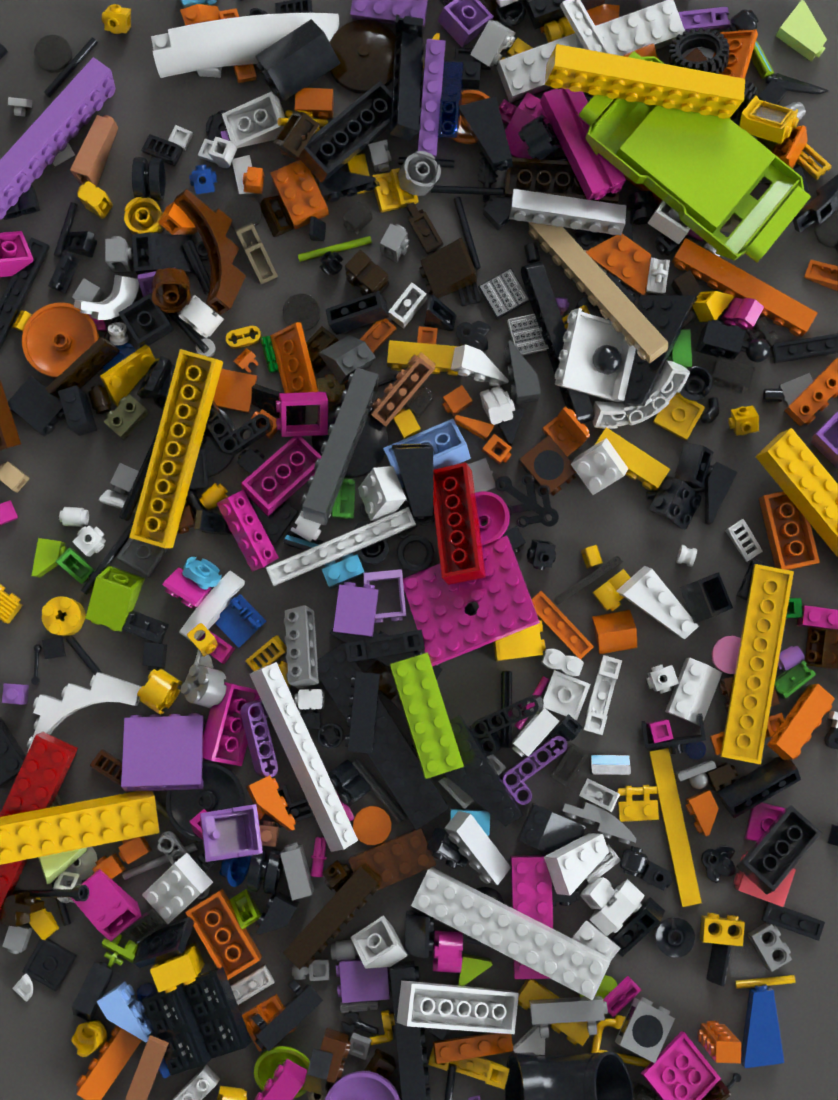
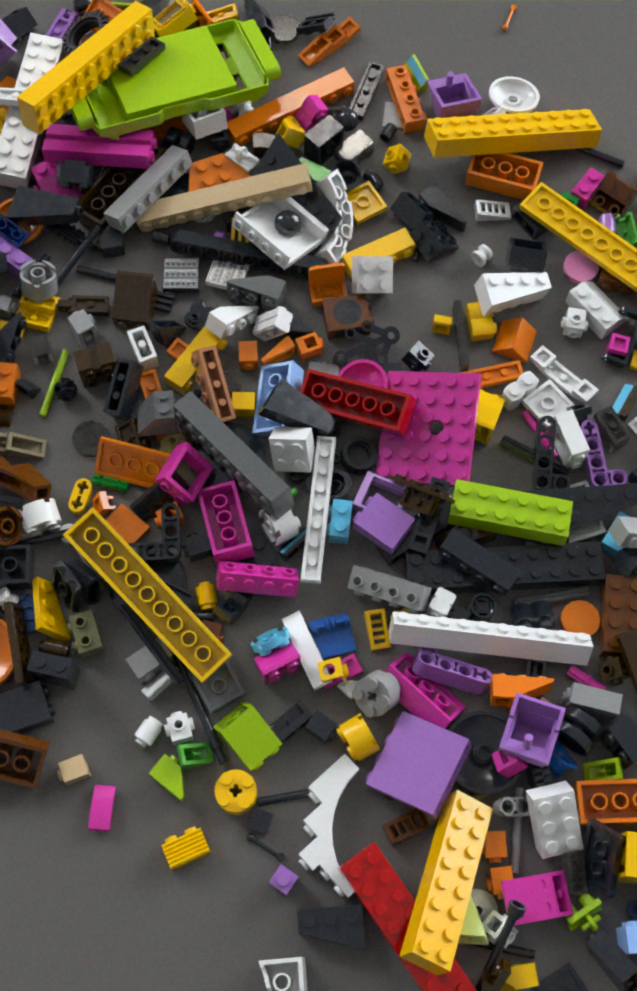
camera: 65 degrees left, 15 degrees down
(394, 628) = (420, 498): none -> dark brown bracket
(694, 121) = (141, 56): none -> black plate

